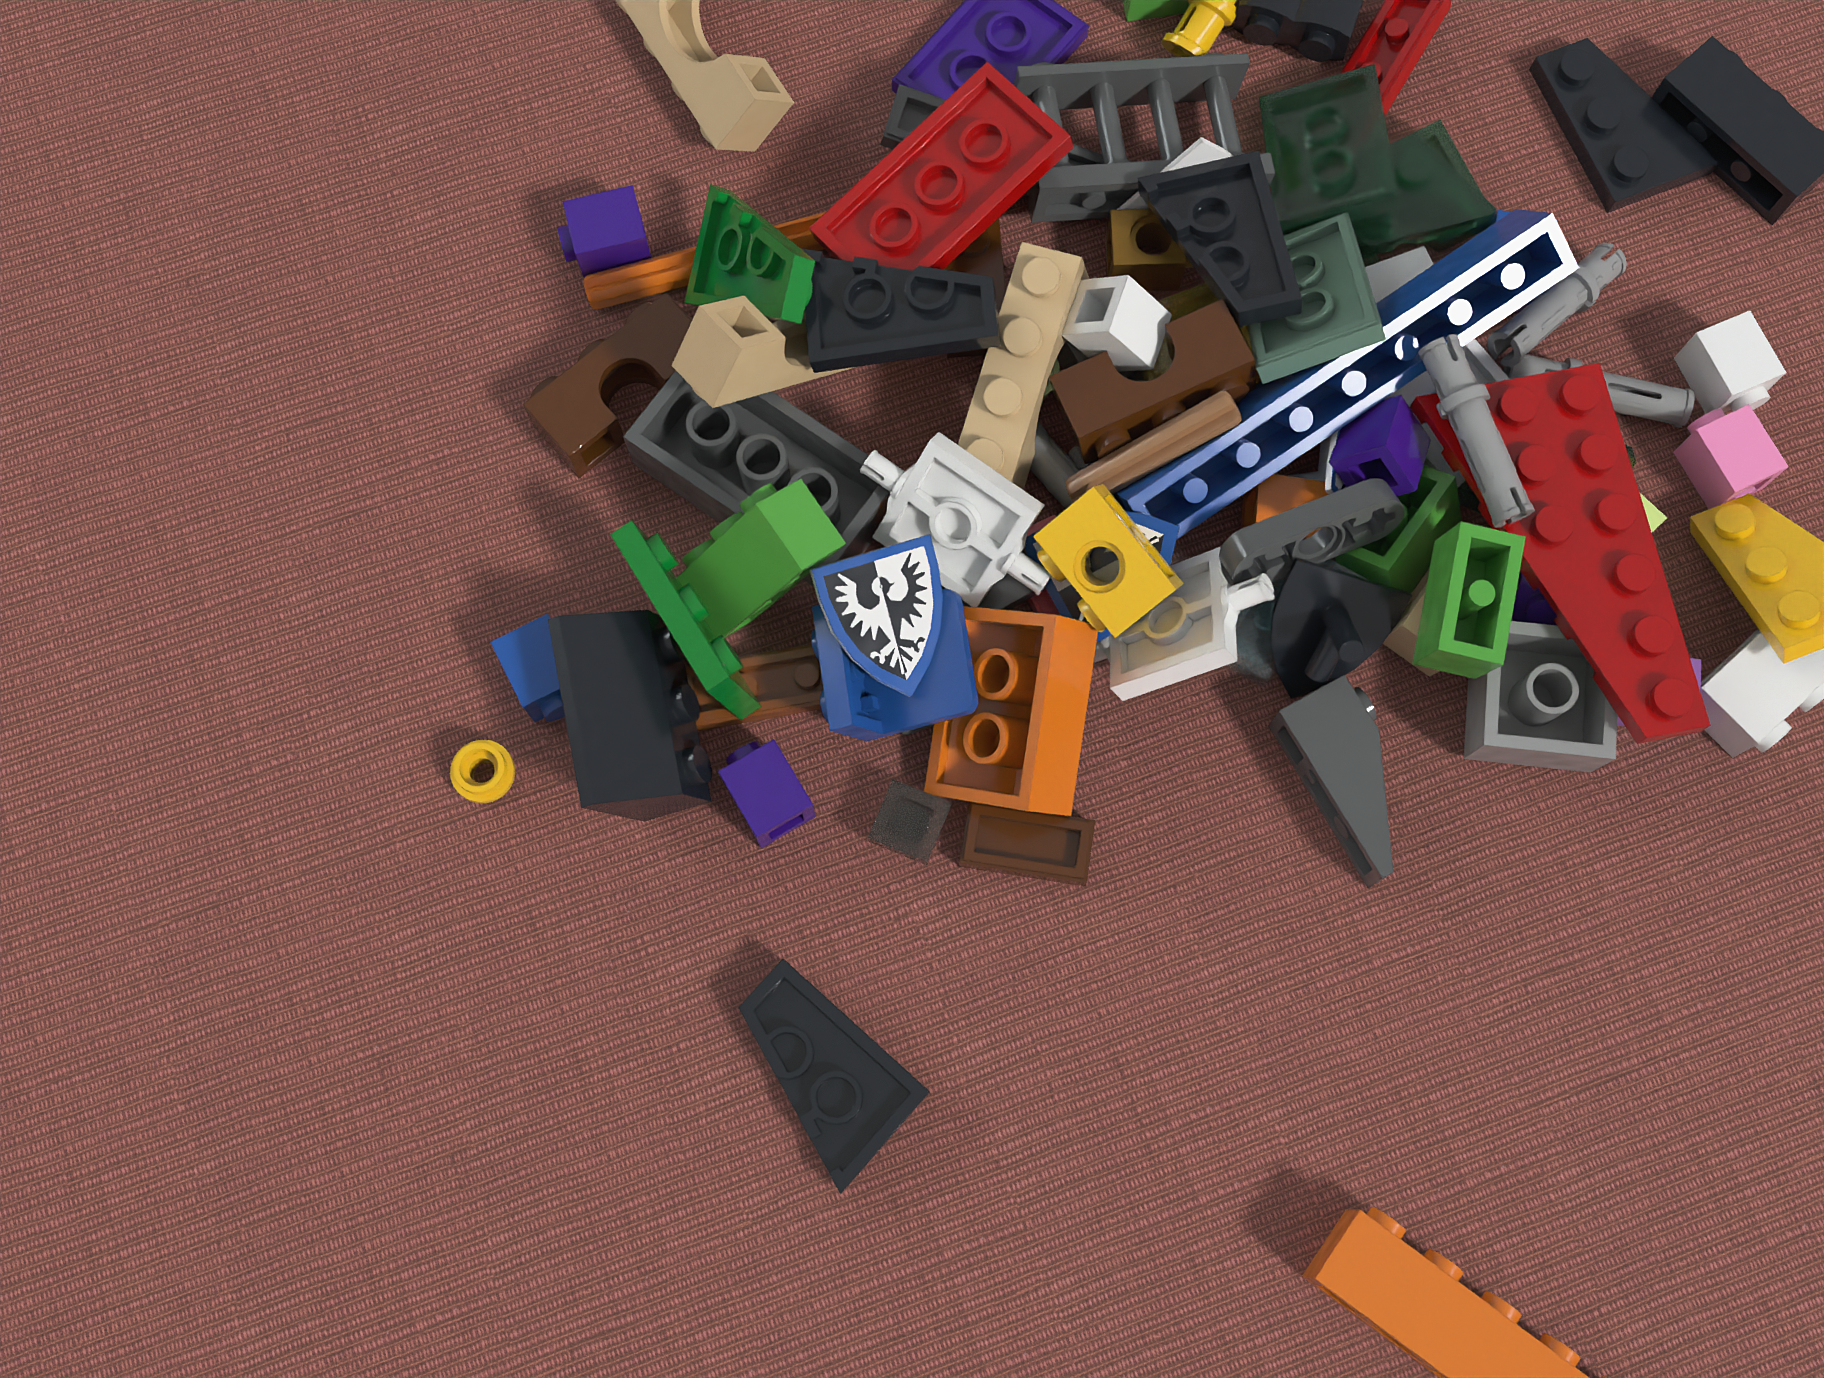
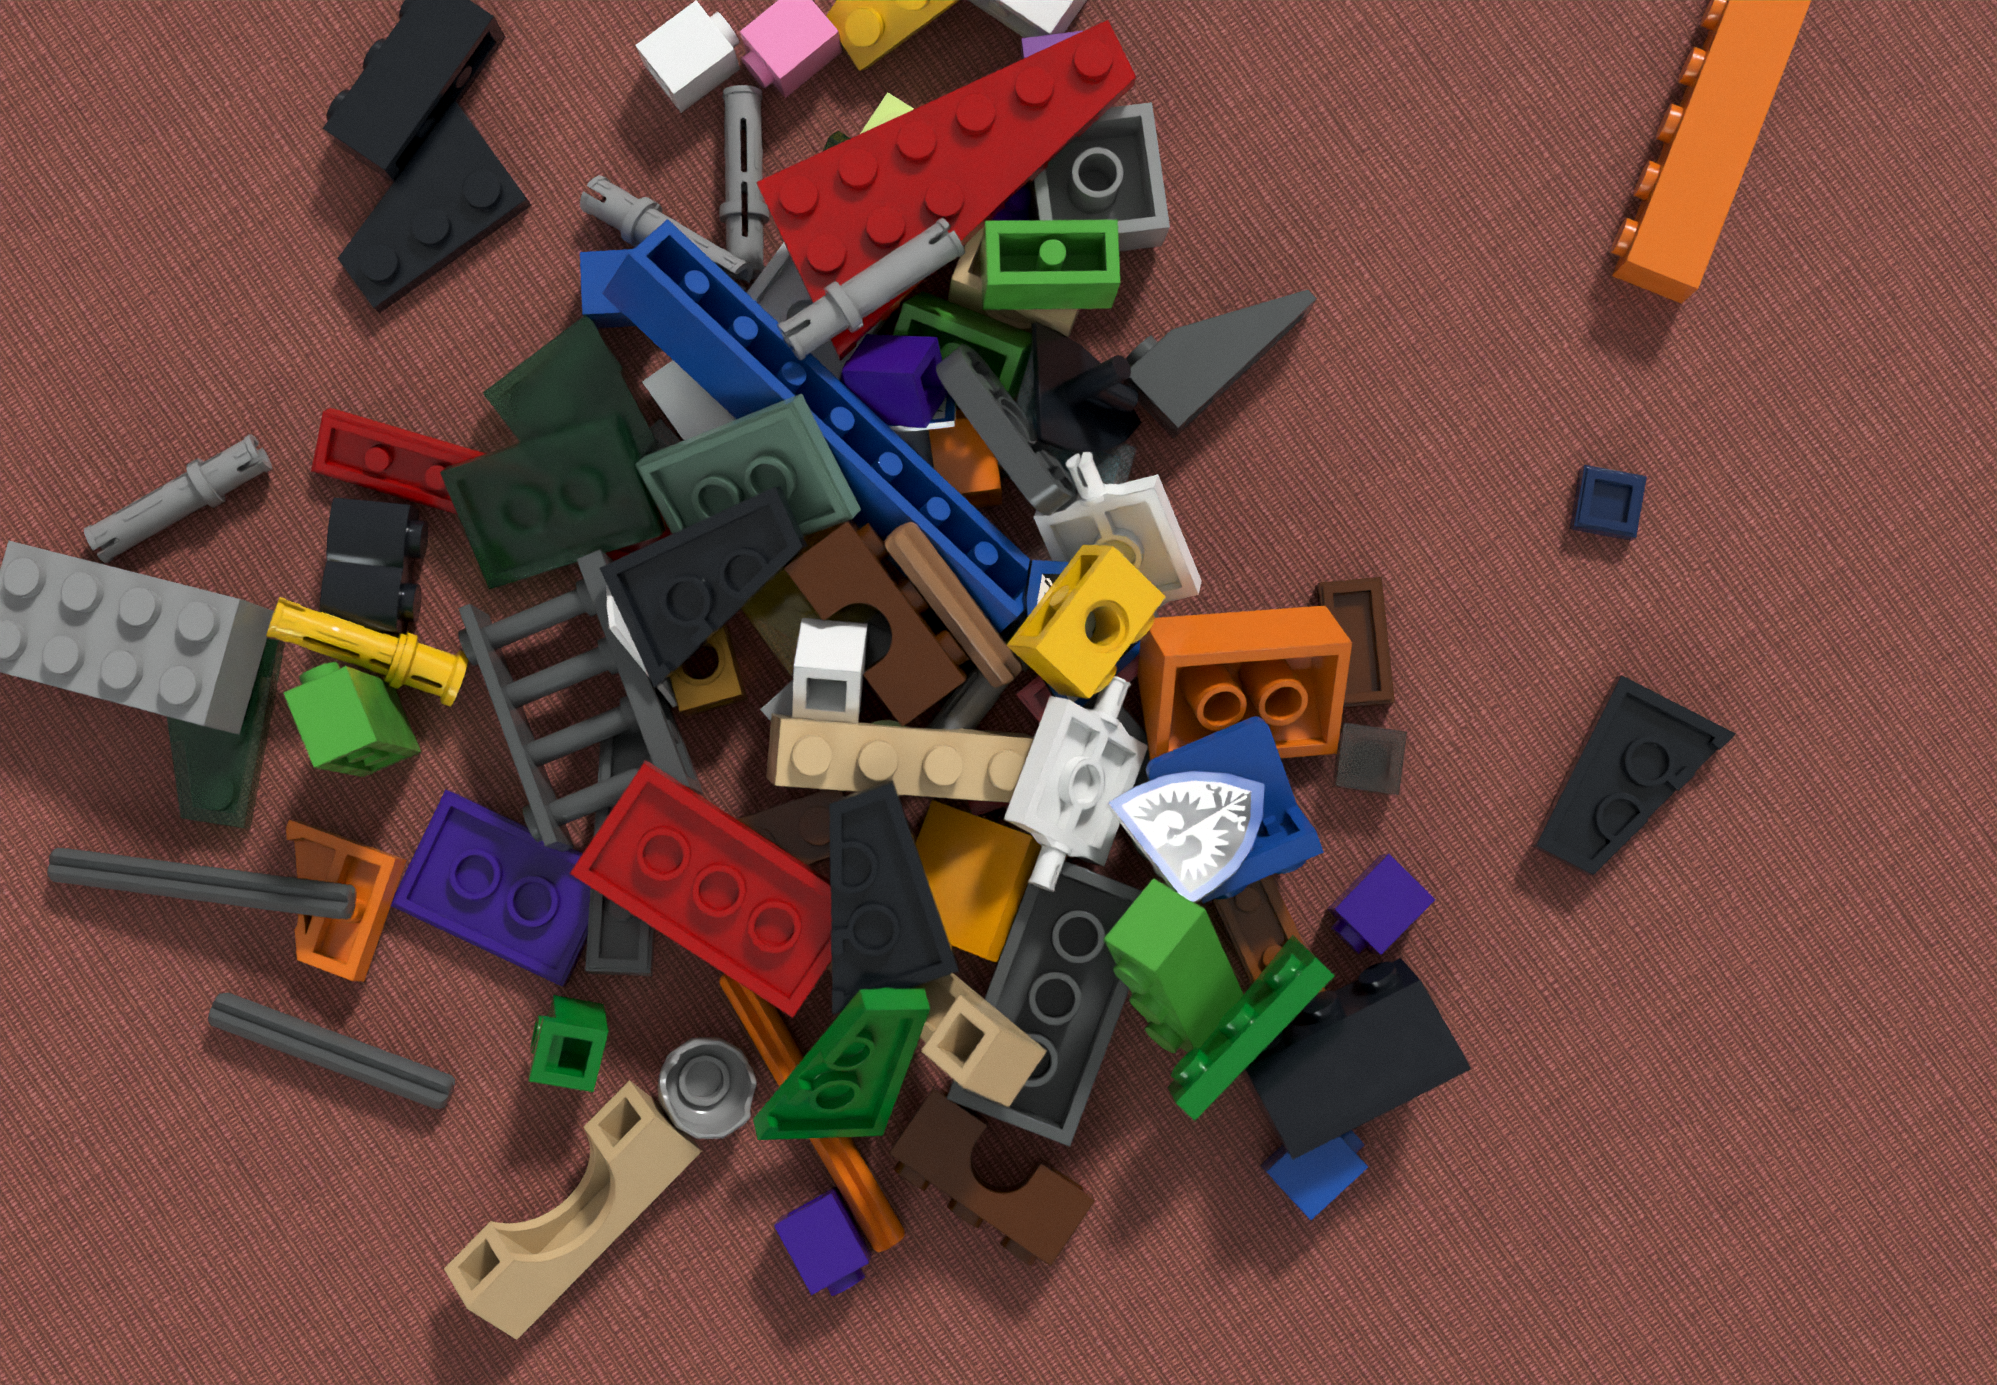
camera: 105 degrees left, 10 degrees up
(472, 756) = (1447, 1198): yellow plate -> none
(769, 165) = (707, 1087): none -> light grey hair
(839, 61) = (569, 1044): none -> green brick
(888, 413) = (975, 876): none -> light orange tile
(1109, 1135) = (1608, 502): none -> dark blue tile

